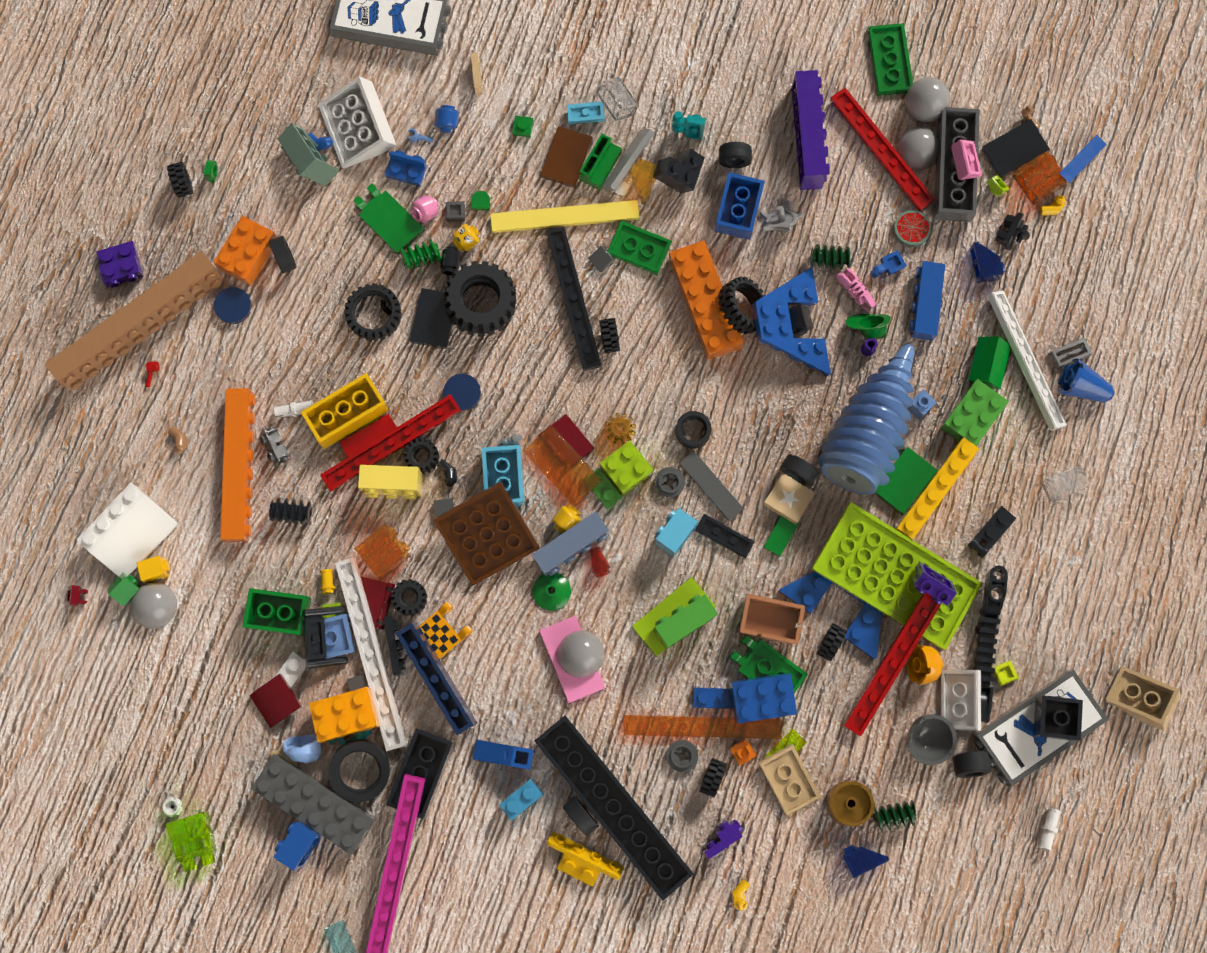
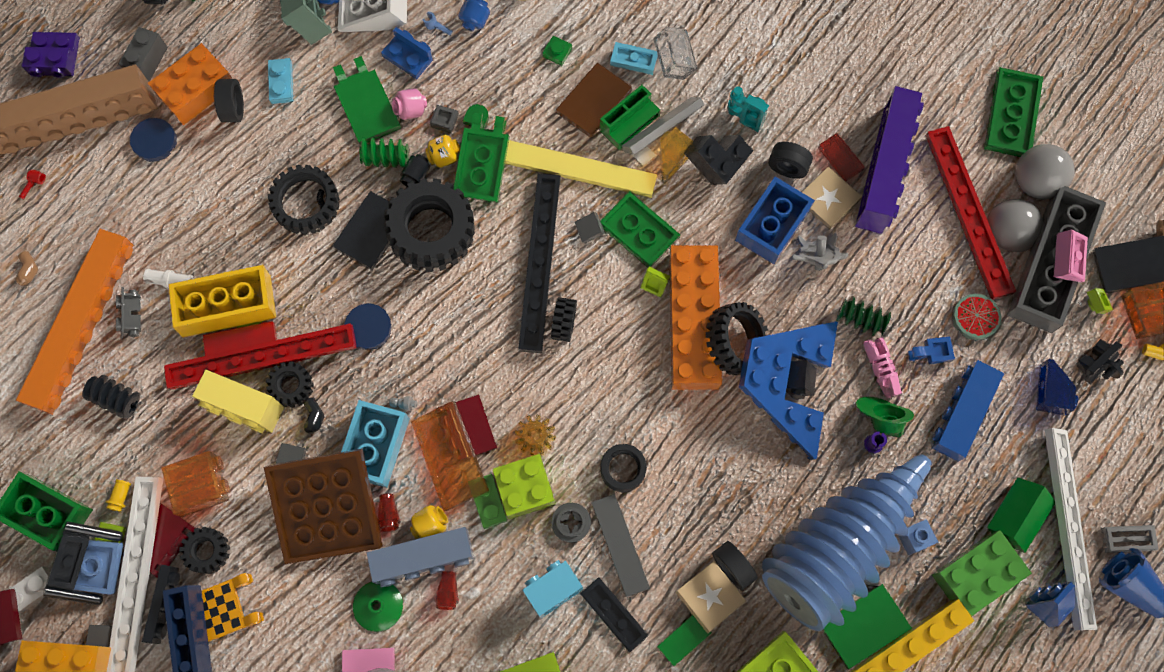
camera: 20 degrees right, 5 degrees down
(196, 237) = (145, 51): none -> dark grey brick
(313, 224) = (280, 80): none -> medium azure plate
(499, 234) = (482, 160): none -> green tile
(534, 523) = (387, 513): none -> clear red cone
(666, 283) = (655, 282): none -> lime tile
(772, 139) = (841, 157): none -> clear red tile
(775, 172) = (832, 197): none -> tan tile
(1029, 416) = (1052, 602): none -> blue slope

